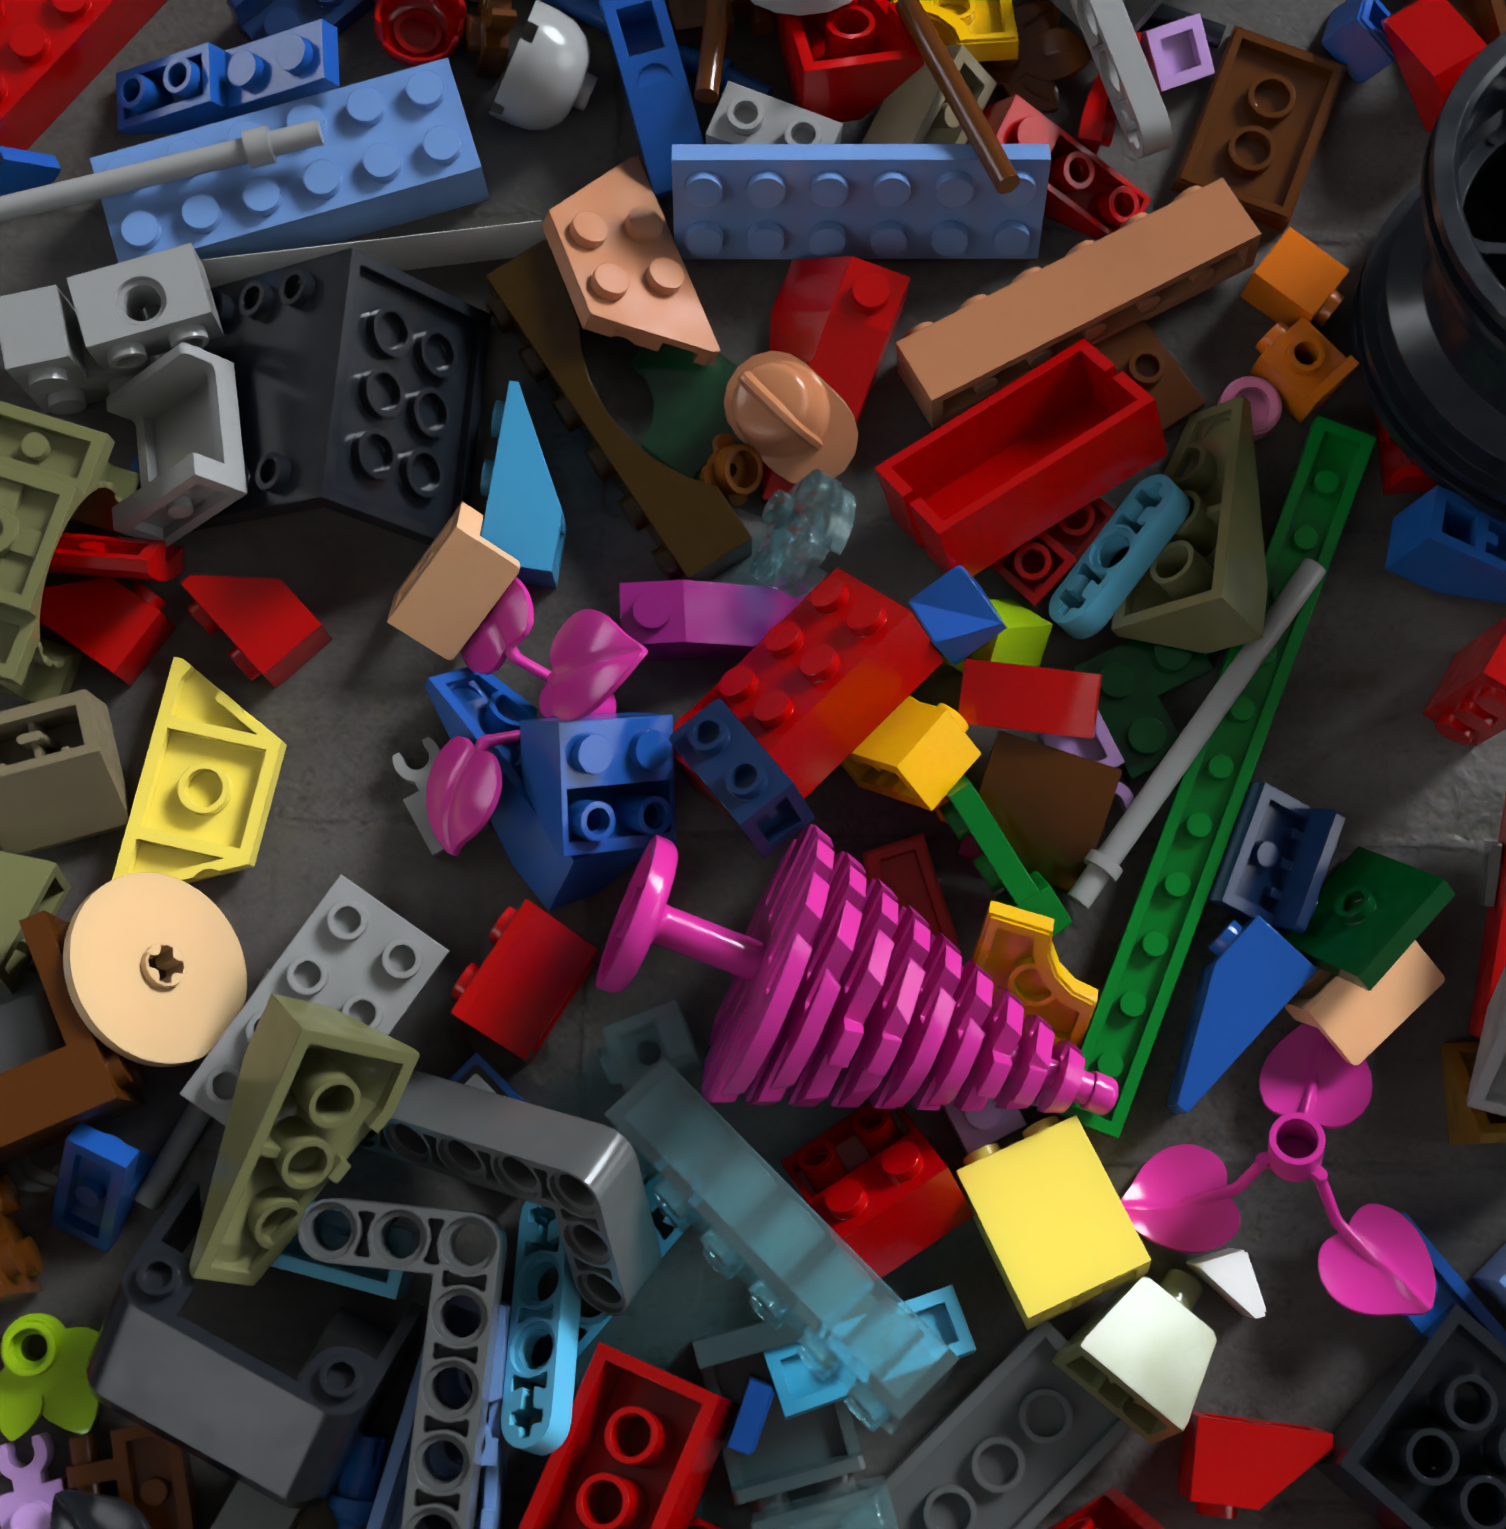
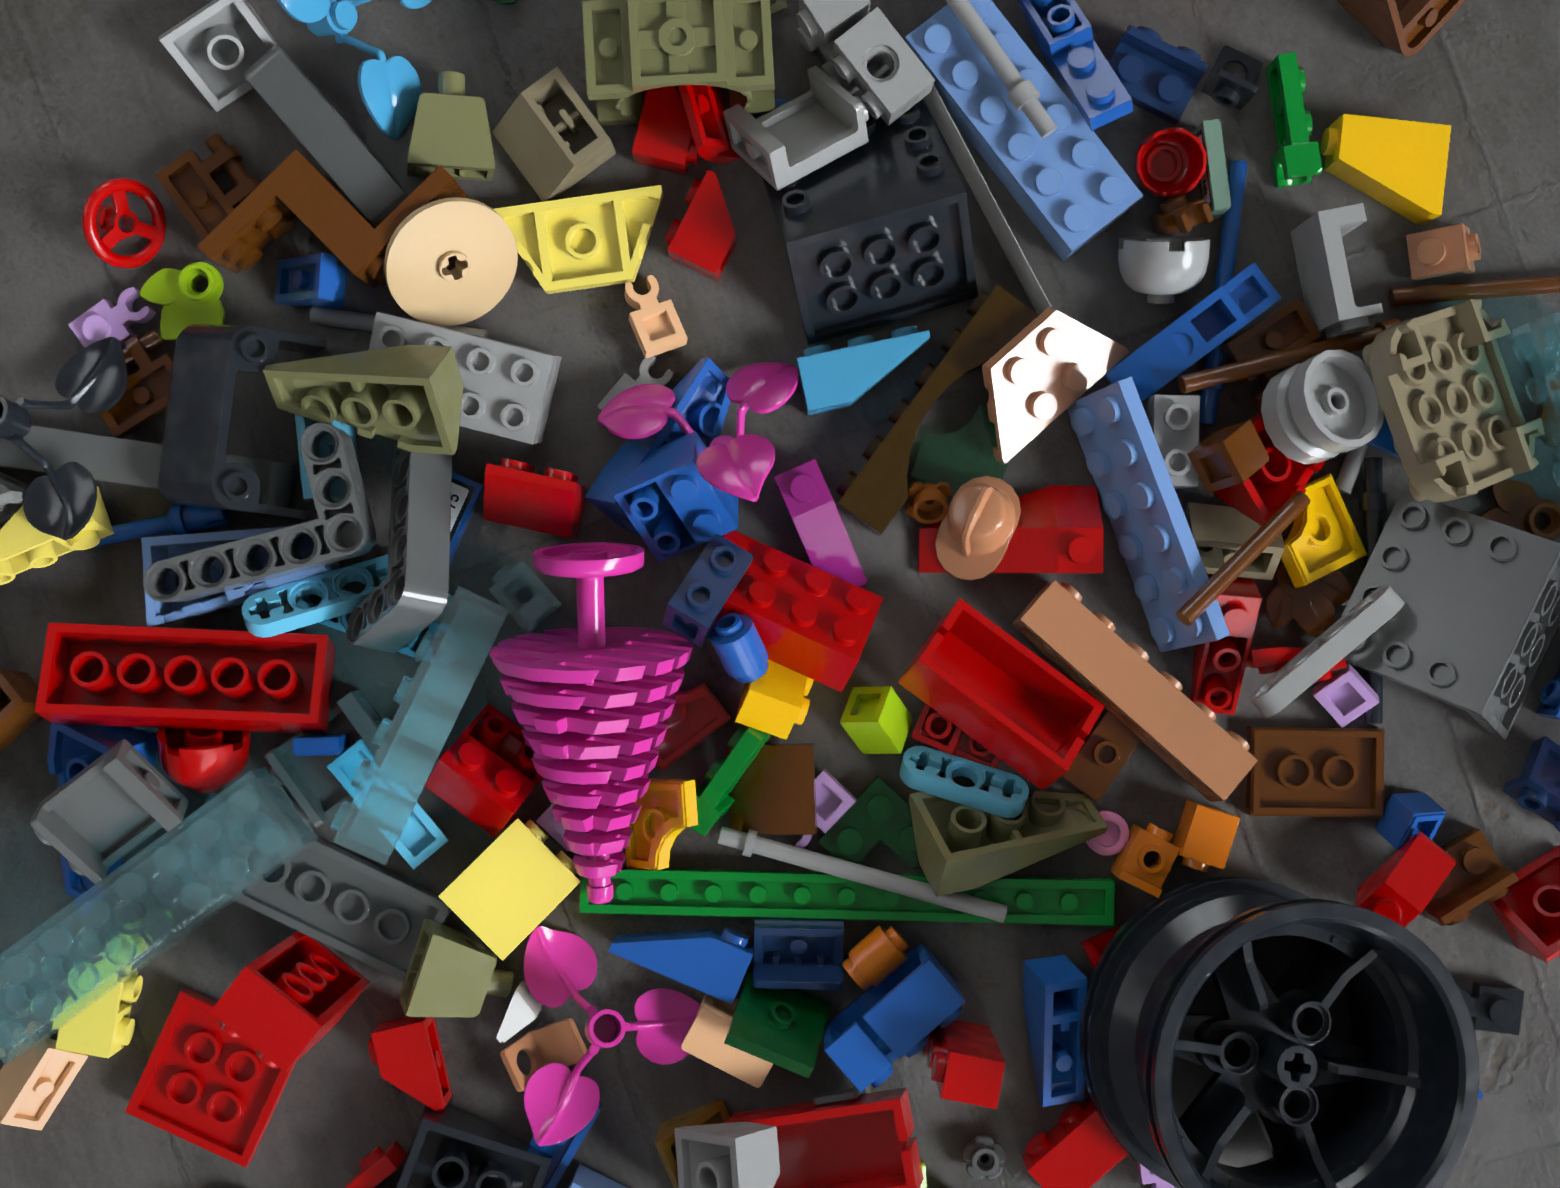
camera: 70 degrees right, 10 degrees up
(352, 738) = (654, 323): none -> light nougat plate
(452, 586) = (774, 348): light nougat panel -> none
(801, 531) = (898, 566): clear light blue plate -> none
(820, 69) = (1228, 456): none -> reddish brown panel
(834, 761) = (739, 647): none -> blue brick
(957, 614) = (876, 690): blue slope -> none
(1029, 698) = (839, 757): red slope -> none
(1289, 1259) = (545, 1045): none -> nougat bracket
(1316, 757) = (876, 957): none -> orange brick
(1405, 756) = (893, 1018): none -> blue piece

